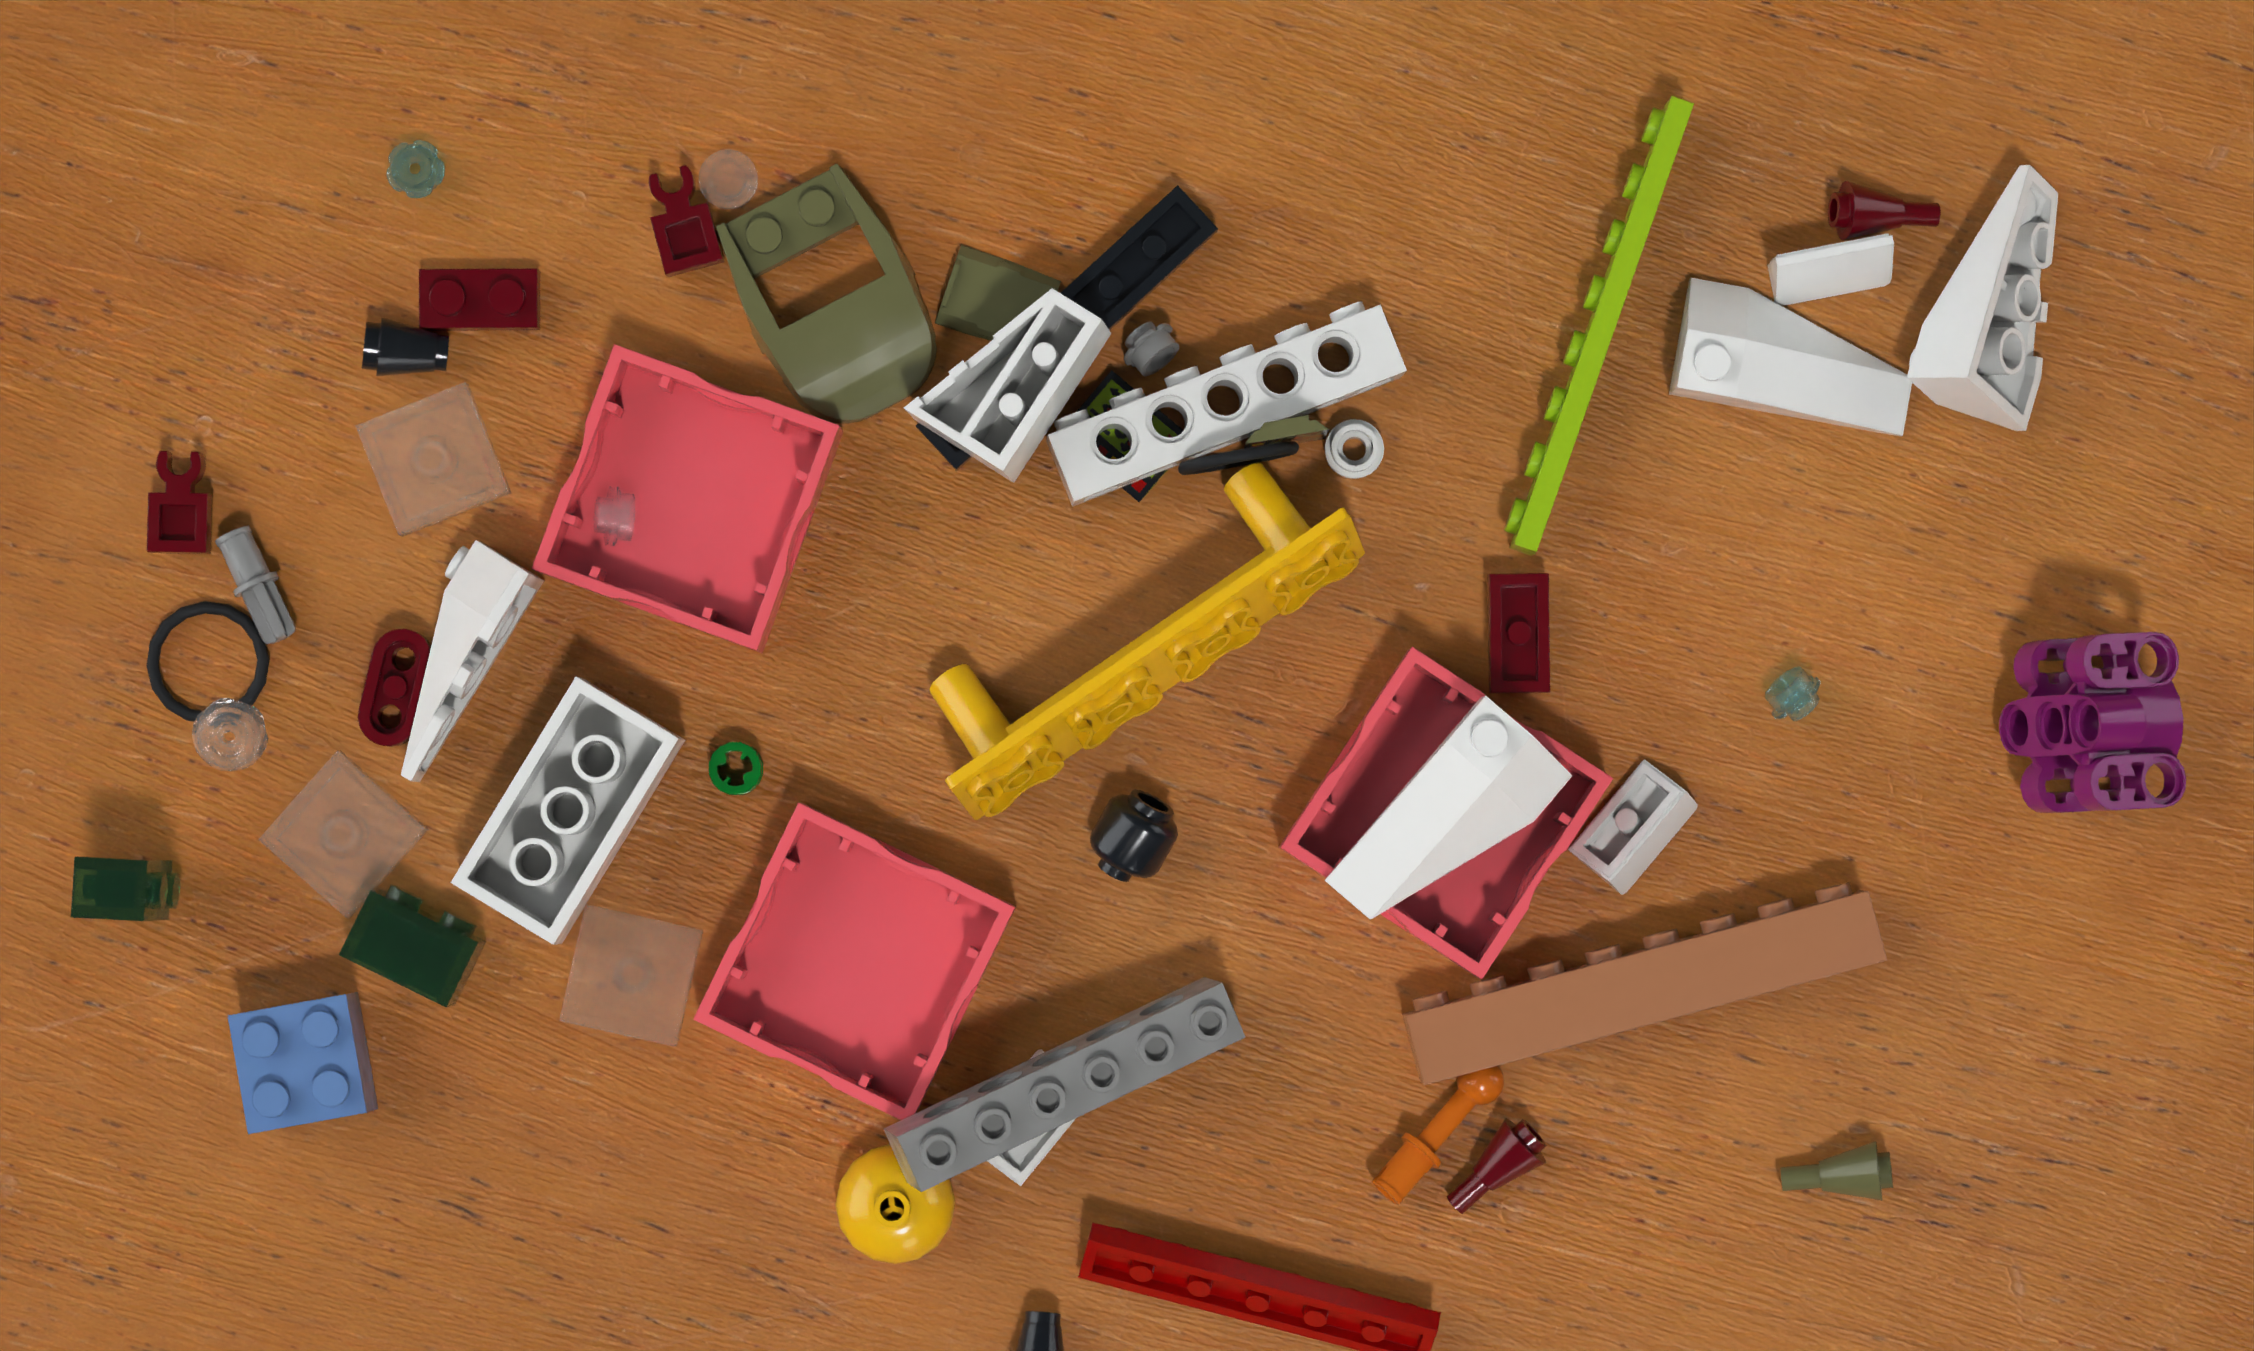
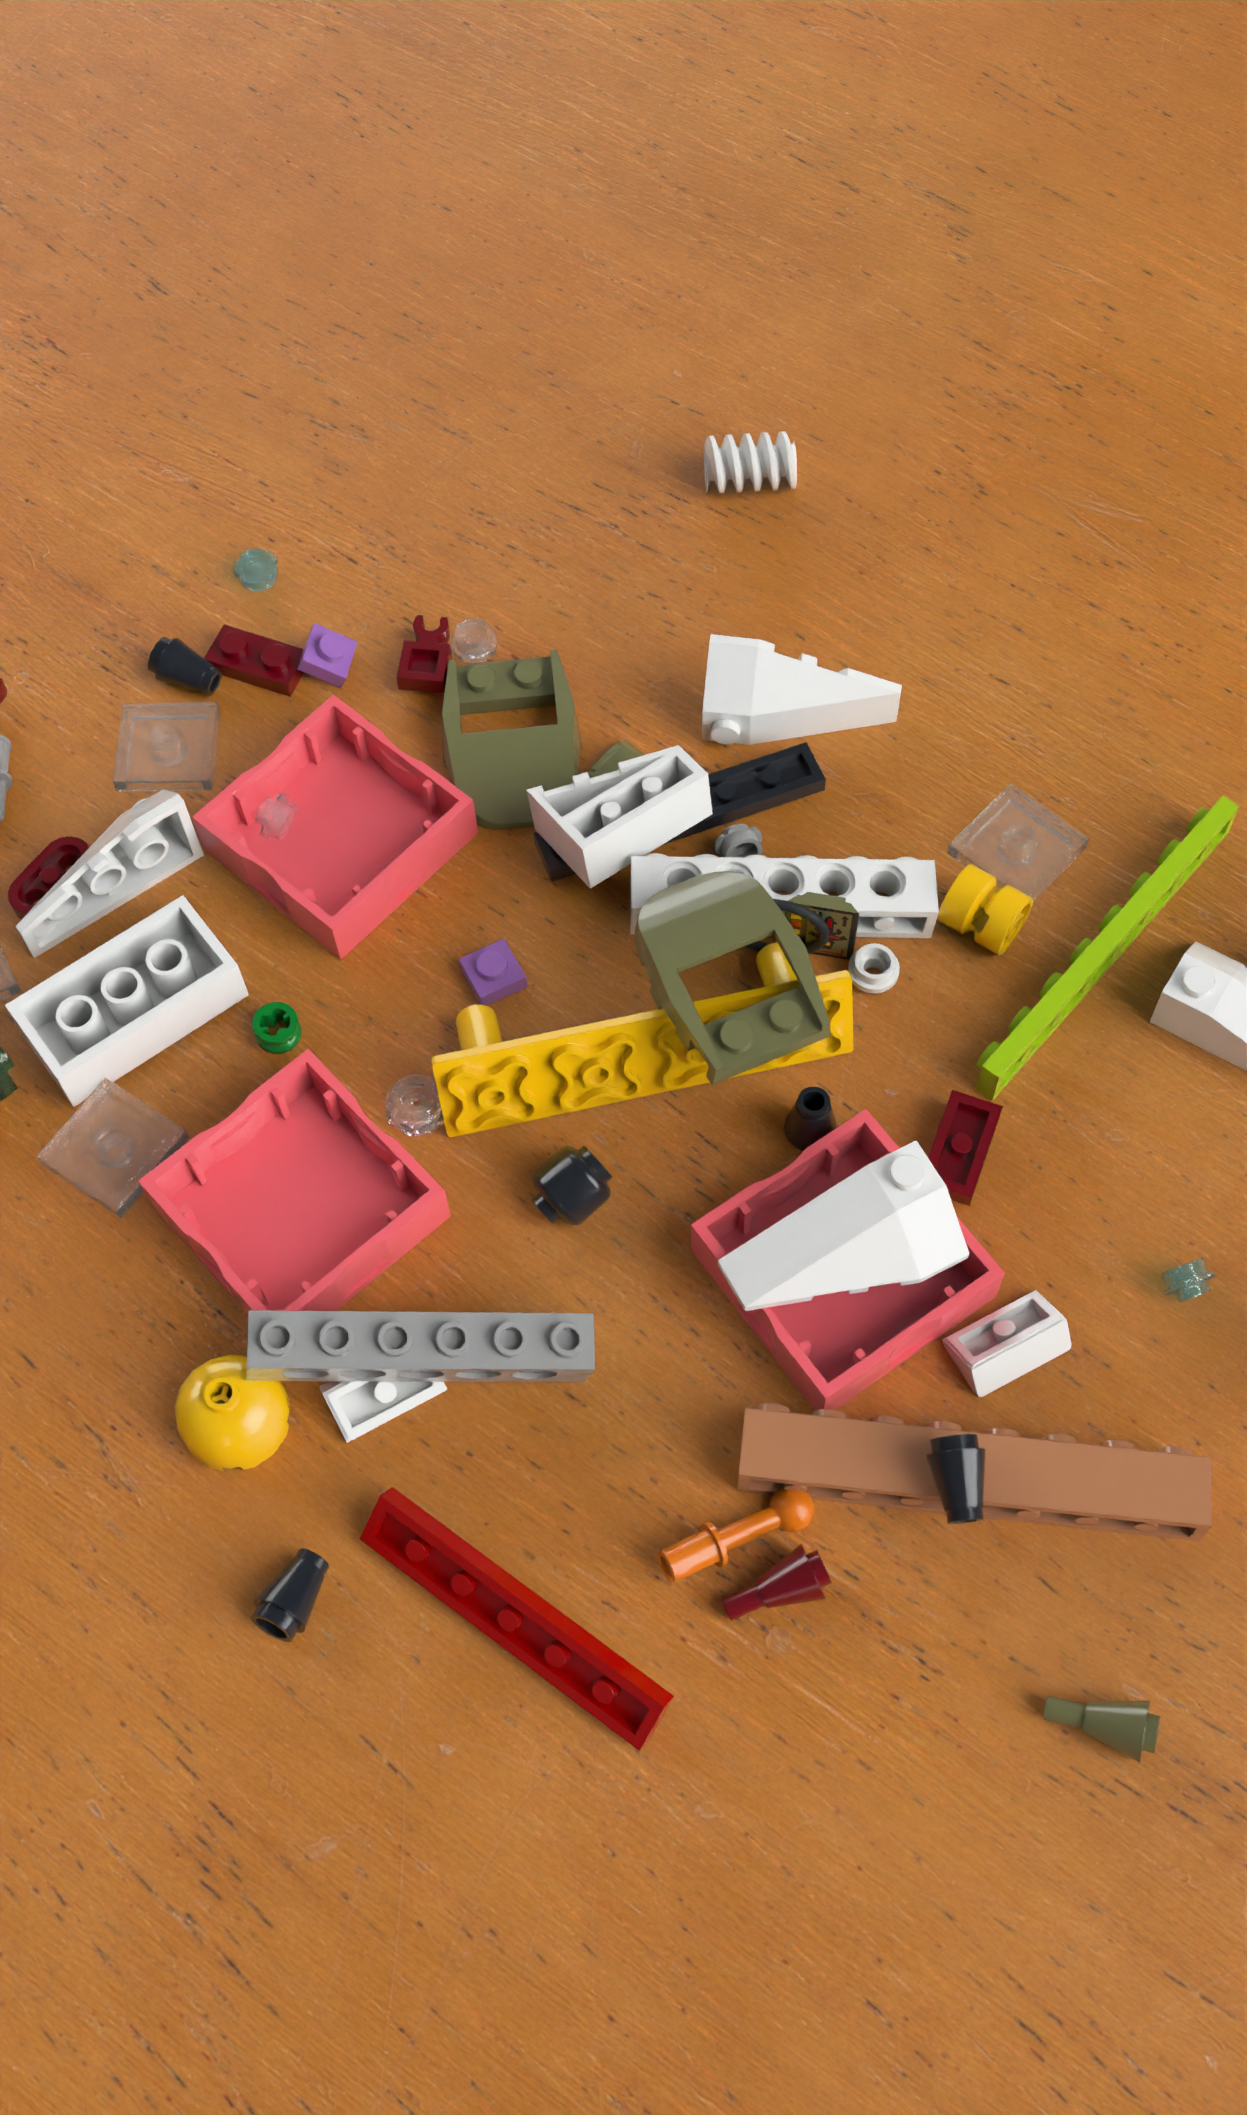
camera: 25 degrees right, 25 degrees down
(564, 267) = (327, 655): none -> medium lavender plate
(909, 805) = (409, 1118): none -> clear plate
(940, 610) = (493, 972): none -> medium lavender plate
(1096, 152) = (773, 697): none -> white wedge
(1174, 520) = (707, 920): none -> olive slope
(1341, 679) = (809, 1118): none -> black cone
(1453, 337) = (988, 911): none -> yellow wheel
(1459, 225) = (1018, 842): none -> clear plate
(1636, 1011) = (959, 1476): none -> black cone

